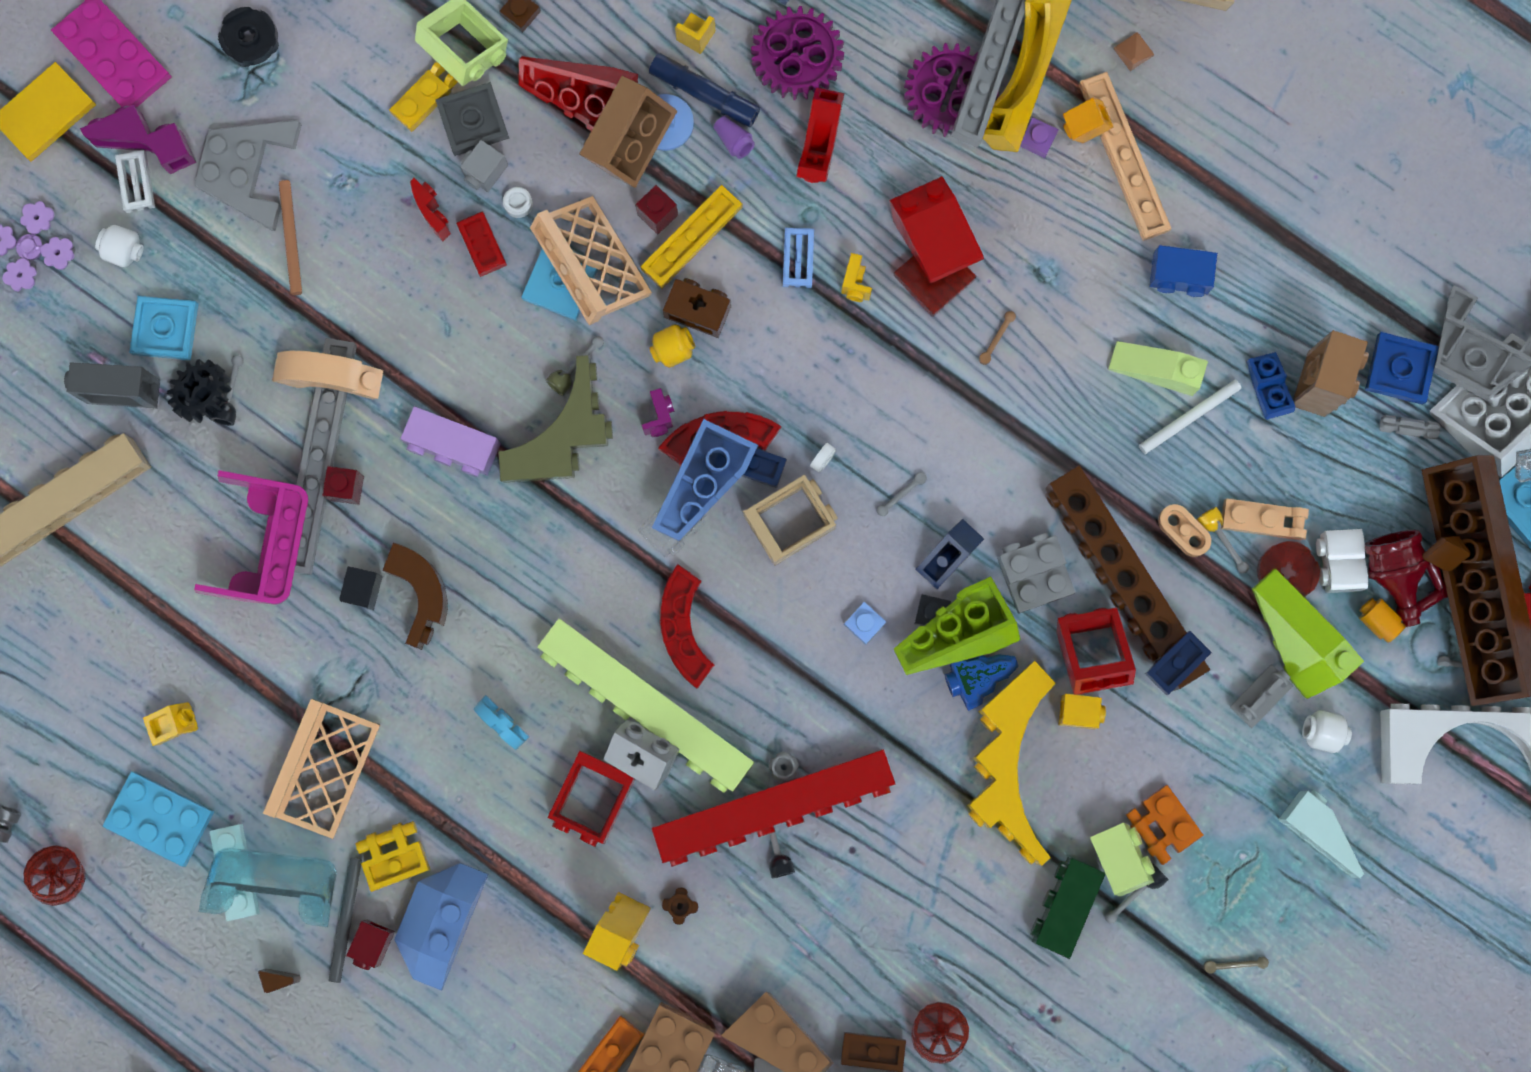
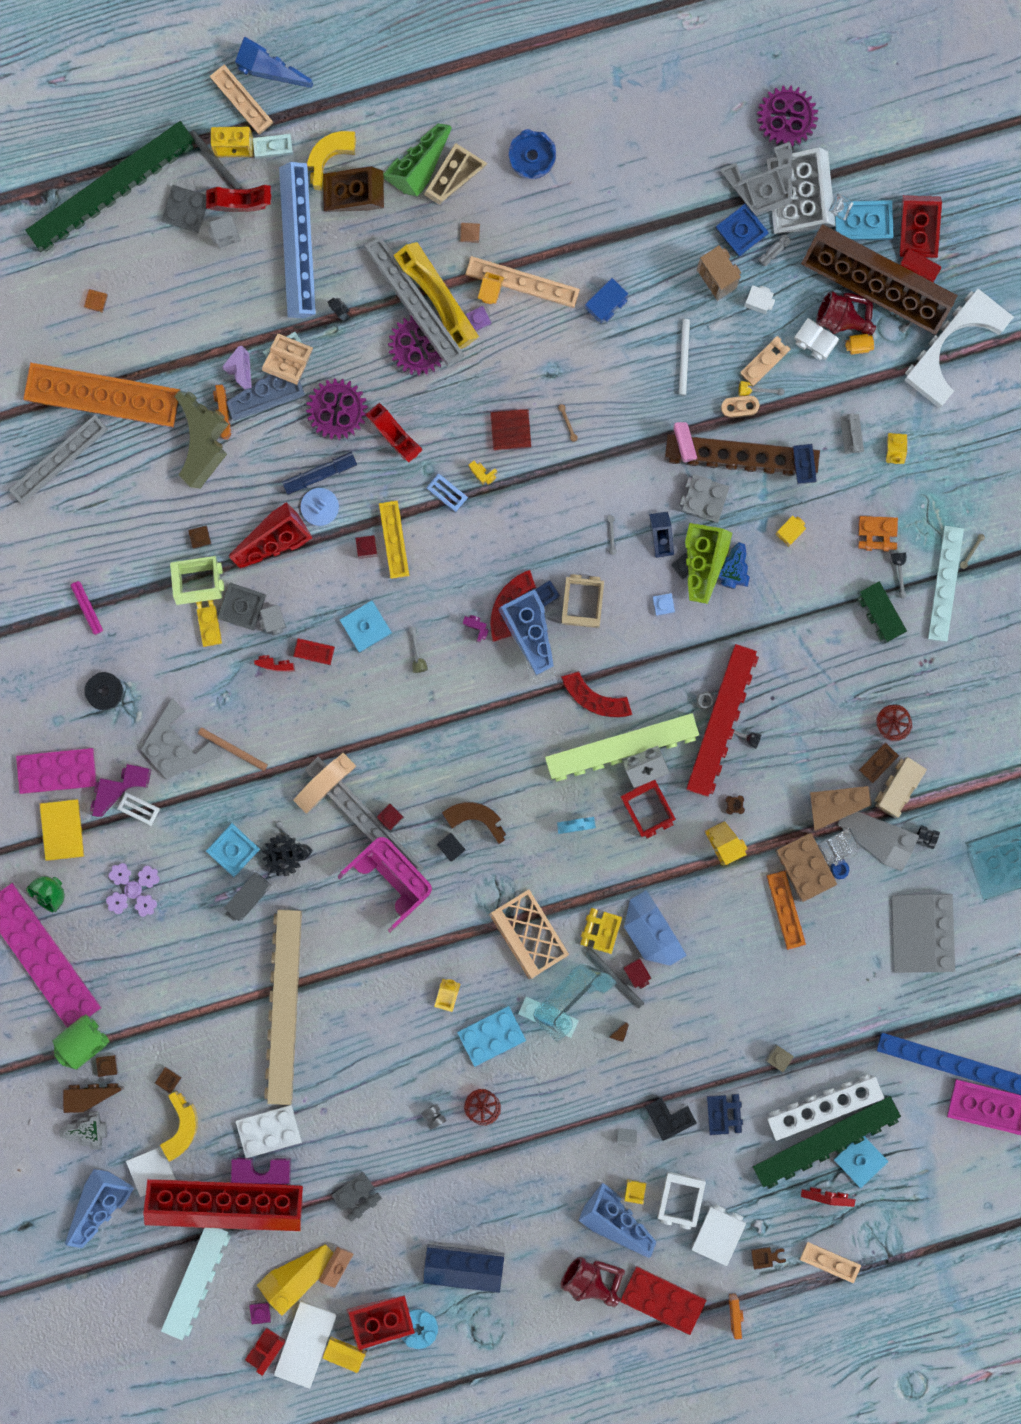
camera: 50 degrees left, 5 degrees up
(119, 245) = (171, 841): white head -> none
(450, 442) = (409, 745): lavender brick -> none
(517, 202) = (305, 616): white tile -> none
(551, 453) = (451, 675): olive arch -> none
(568, 263) = (365, 613): light nougat fence -> none
(628, 131) = (317, 531): medium nougat brick -> none
(672, 345) = (445, 593): yellow head -> none
(695, 32) = (283, 453): yellow panel -> none
(708, 318) = (445, 565): reddish brown brick -> none
(735, 138) = (357, 477): medium lavender cone -> none
(823, 457) = (563, 560): white tile -> none
(935, 229) = (489, 412): red slope -> none
(1001, 800) = (804, 605): yellow arch -> none
(1087, 492) = (684, 441): none -> bright pink slope
(1100, 676) = (782, 507): red window -> none
(1122, 859) = (879, 567): yellowish green brick -> none
(1159, 367) = (646, 353): yellowish green slope -> none
(1168, 962) = (945, 584): none -> light aqua plate
(1270, 385) = (699, 303): blue slope -> none
(1288, 766) = (896, 448): none -> yellow bracket
(1292, 32) = (532, 141): none -> blue plate
(1302, 563) = (802, 360): clear red plate -> none
(1308, 644) = (845, 391): lime wedge -> none
(1320, 828) = (936, 457): light aqua slope -> none
(1326, 731) = (893, 416): white head -> none
(1335, 454) = (760, 299): none -> white brick
(1447, 553) = (852, 287): reddish brown slope -> none

